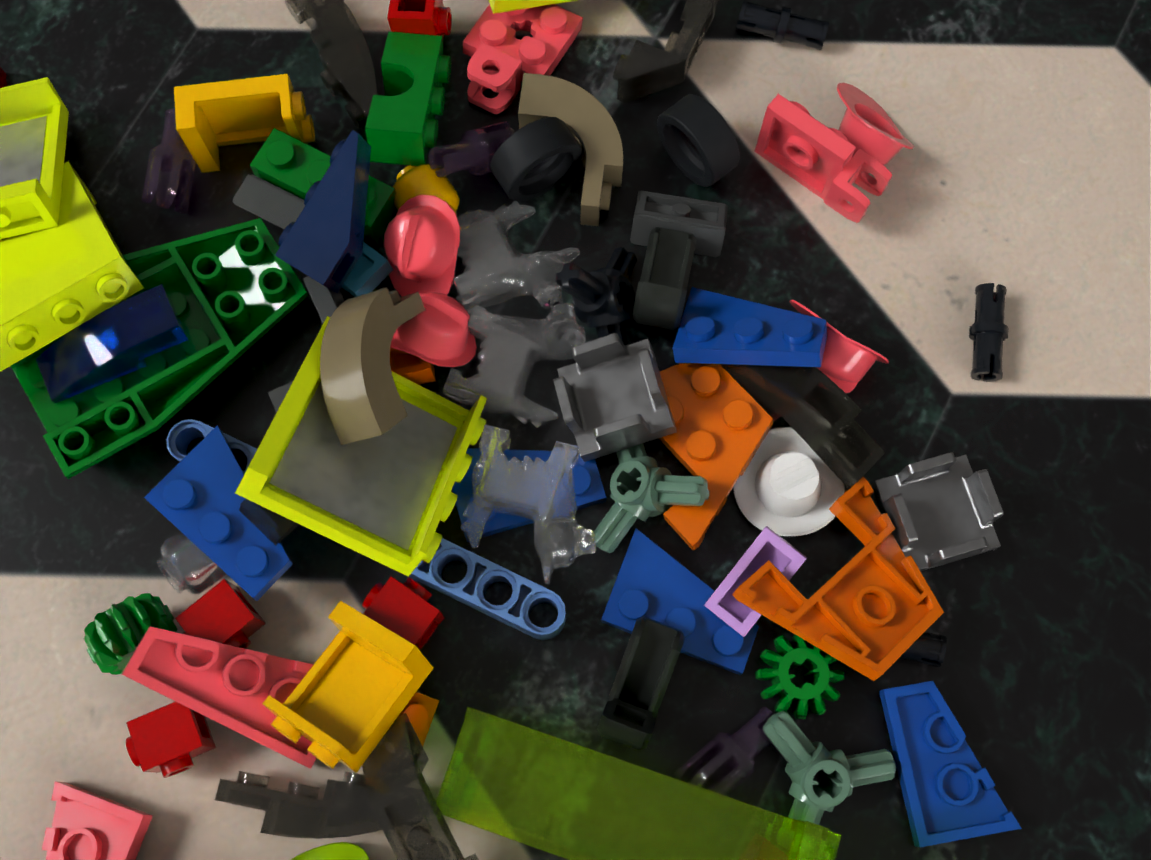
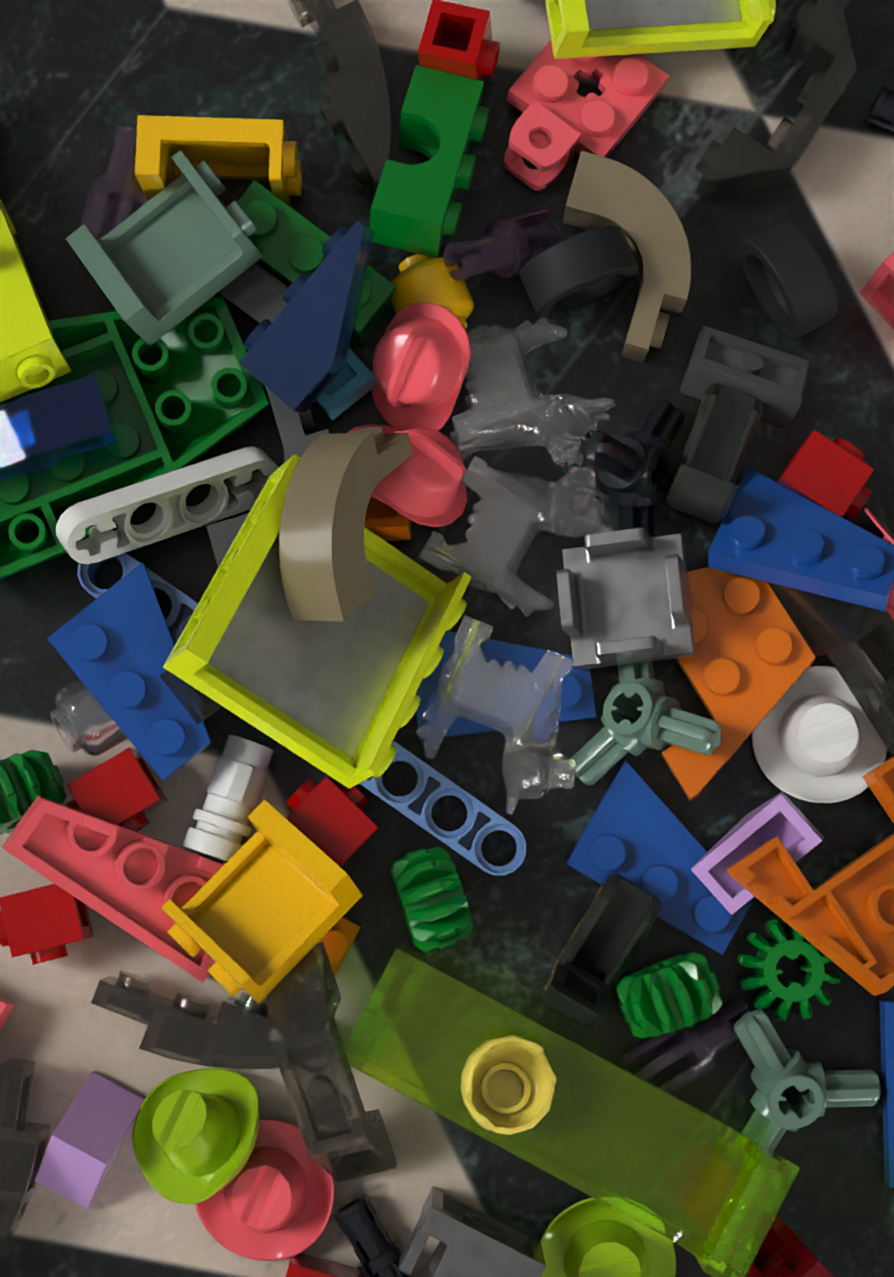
camera: 10 degrees right, 10 degrees up
(214, 185) = (170, 252): none -> sand green panel
(238, 388) = (171, 513): none -> white beam
(317, 597) = (230, 799): none -> white axle
(493, 664) = (431, 899): none -> green gear
(579, 805) = (508, 1084): none -> light yellow hair
(704, 712) = (668, 995): none -> green gear
(756, 279) = (829, 474): none -> red brick

